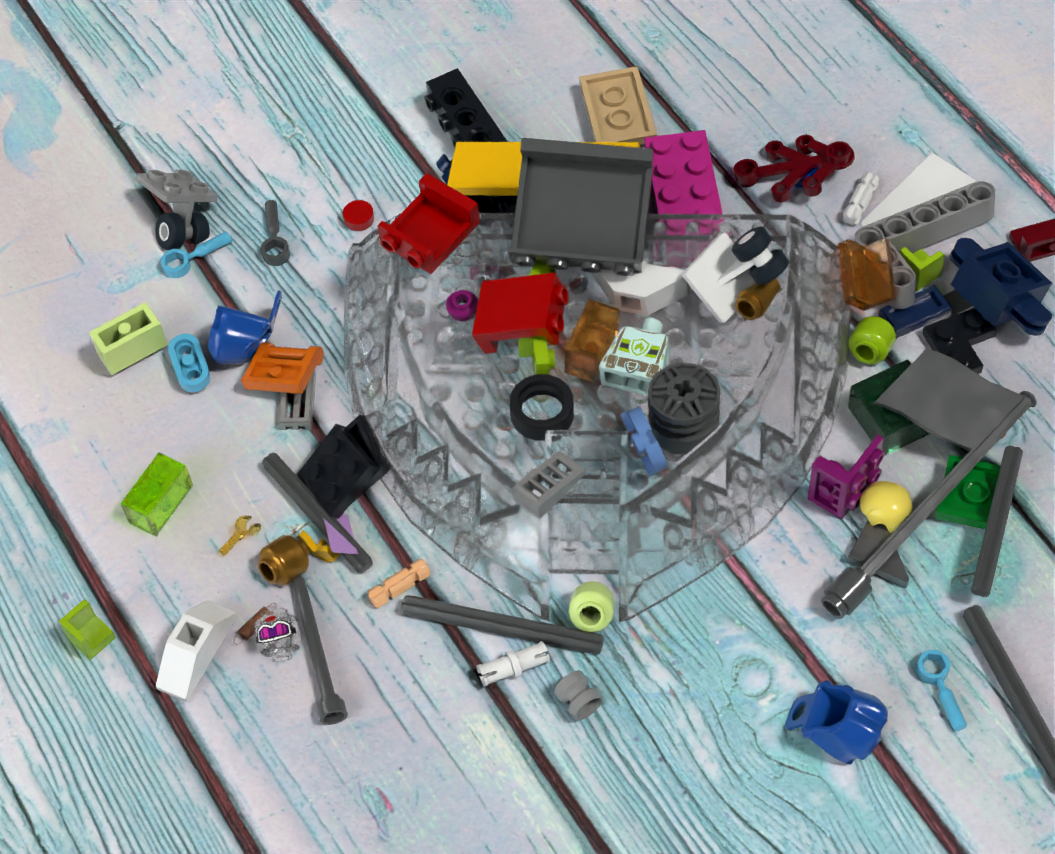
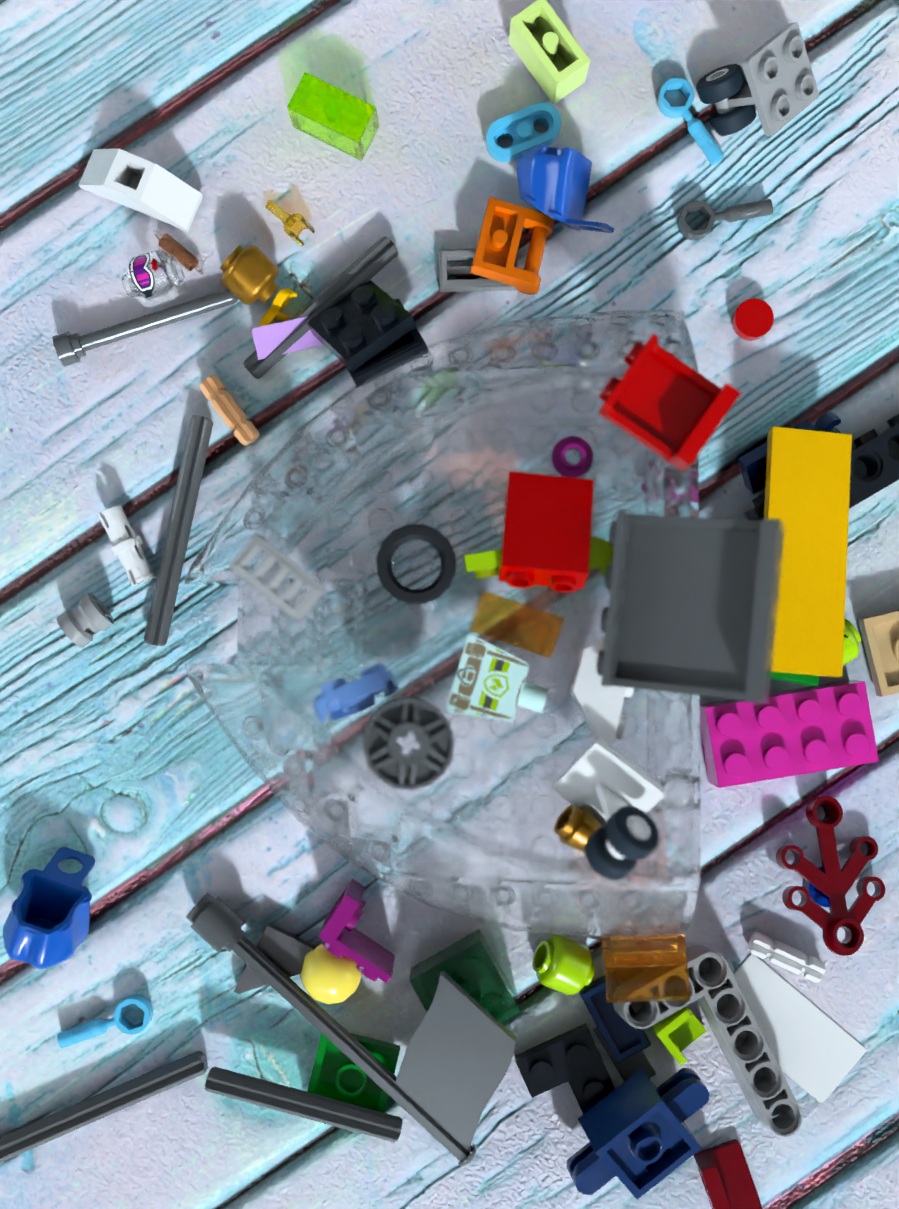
camera: 85 degrees right, 30 degrees up
(86, 630) = (156, 61): lime panel -> none
(591, 606) = (189, 632): yellowish green head -> none

